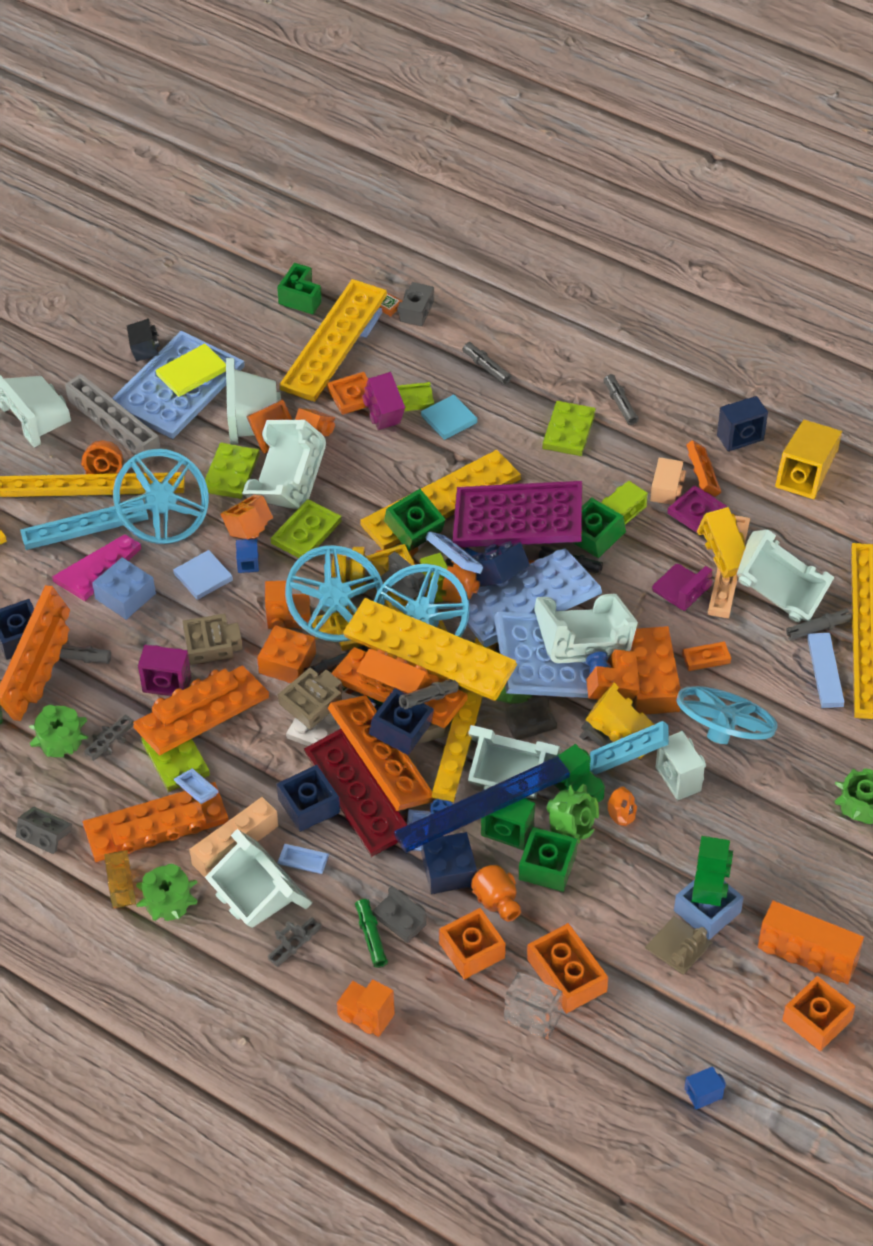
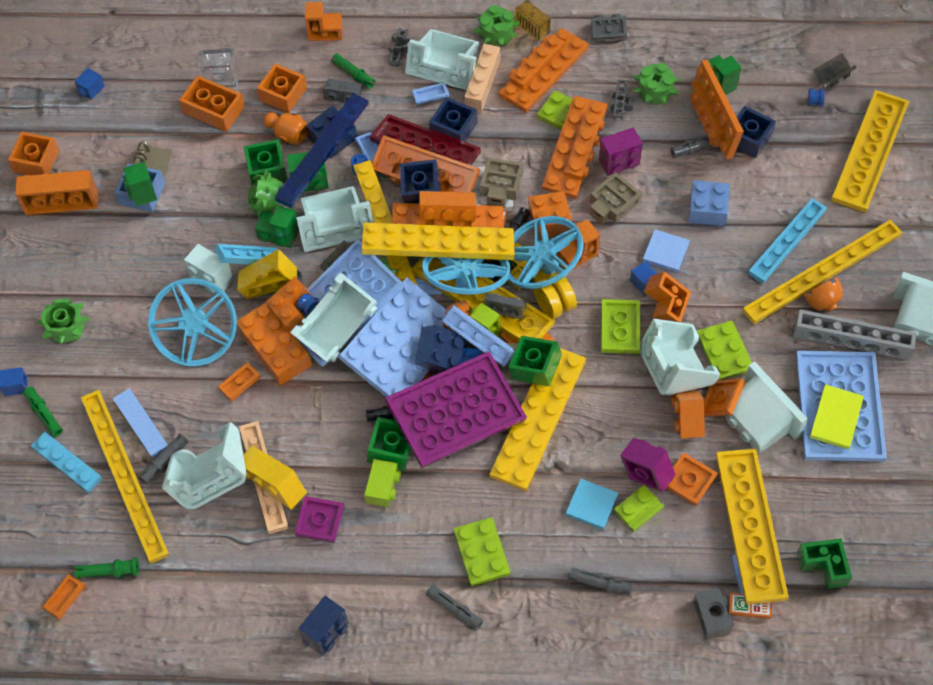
camera: 150 degrees right, 10 degrees up
(80, 575) = (746, 216): dark pink wing -> none
(143, 339) = (906, 424): black brick -> none
(160, 496) = (747, 277): medium azure wheel -> none
(196, 786) = (532, 91): light blue tile -> none
(436, 691) = (411, 198): dark grey pin -> none
(622, 806) = (236, 228): orange rock -> none
(667, 481) = (360, 532): light nougat brick -> none
(683, 586) = (290, 435): magenta bracket -> none
(703, 468) = (336, 566): orange plate -> none
(808, 458) = (246, 630): yellow slope -> none

